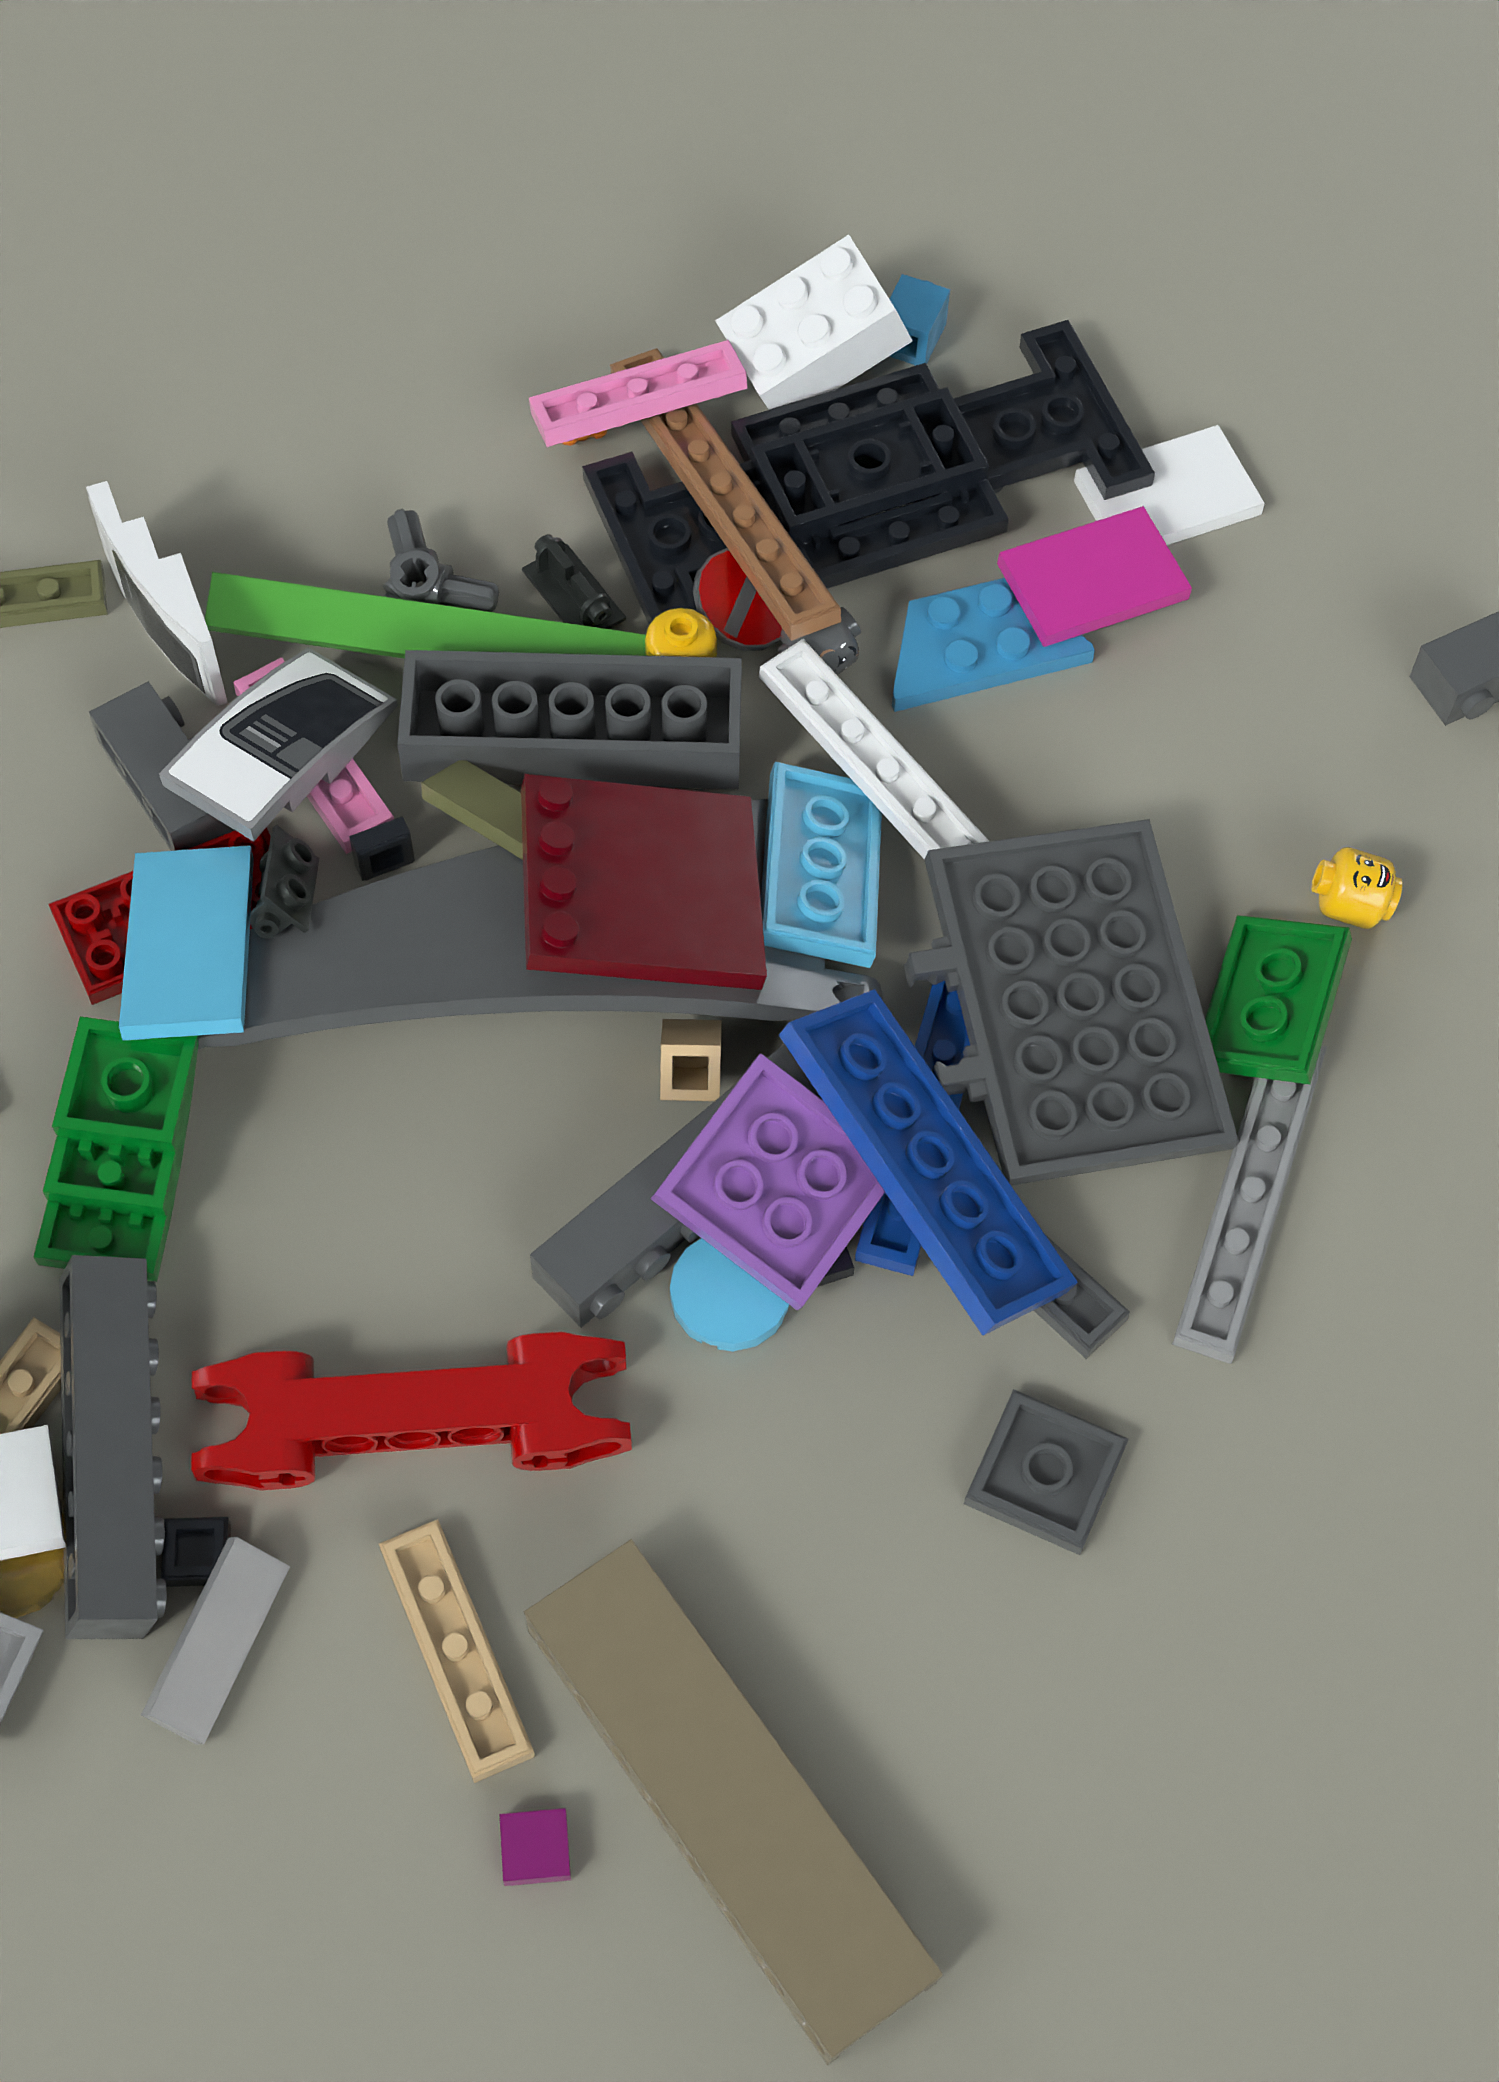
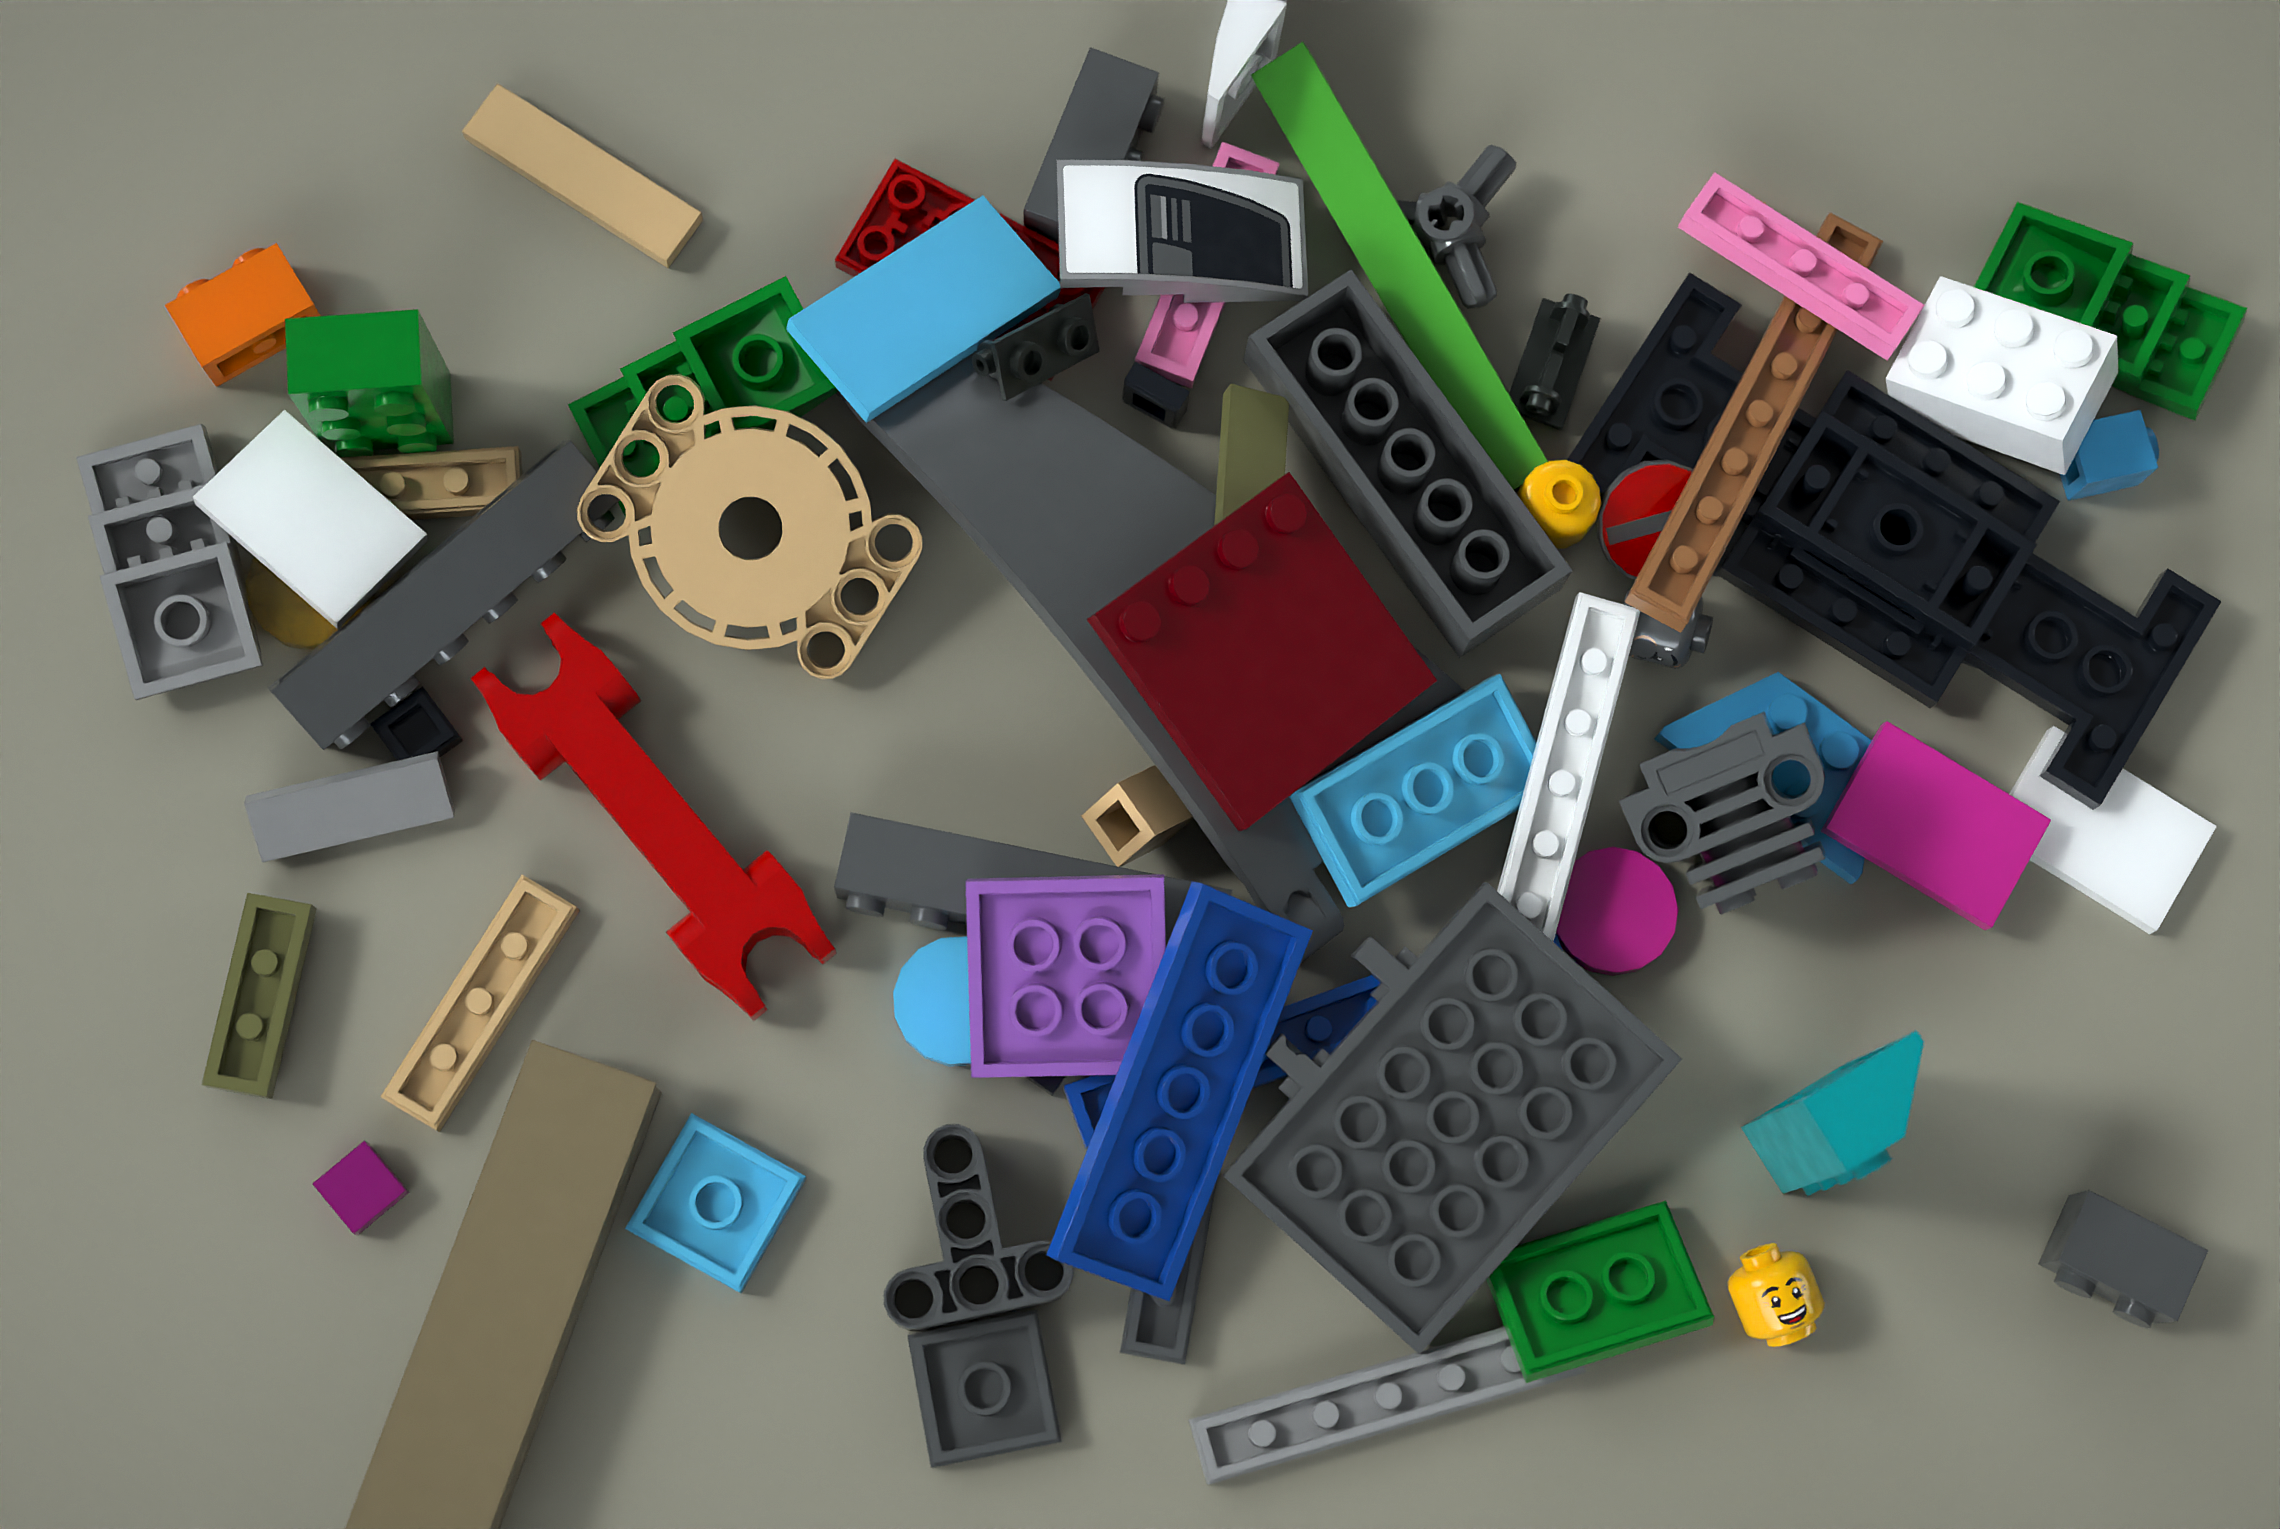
camera: 45 degrees right, 15 degrees up
(199, 1214) = (684, 508): none -> tan piece
(314, 1820) = (259, 996): none -> olive plate
(755, 1575) = (716, 1203): none -> medium azure tile
(783, 243) = (2165, 331): none -> green slope
(930, 1415) = (966, 1254): none -> dark grey beam
(993, 671) = (1732, 811): none -> dark grey piece
(1005, 800) = (1617, 912): none -> dark pink tile
(1270, 739) = (1840, 1121): none -> teal slope

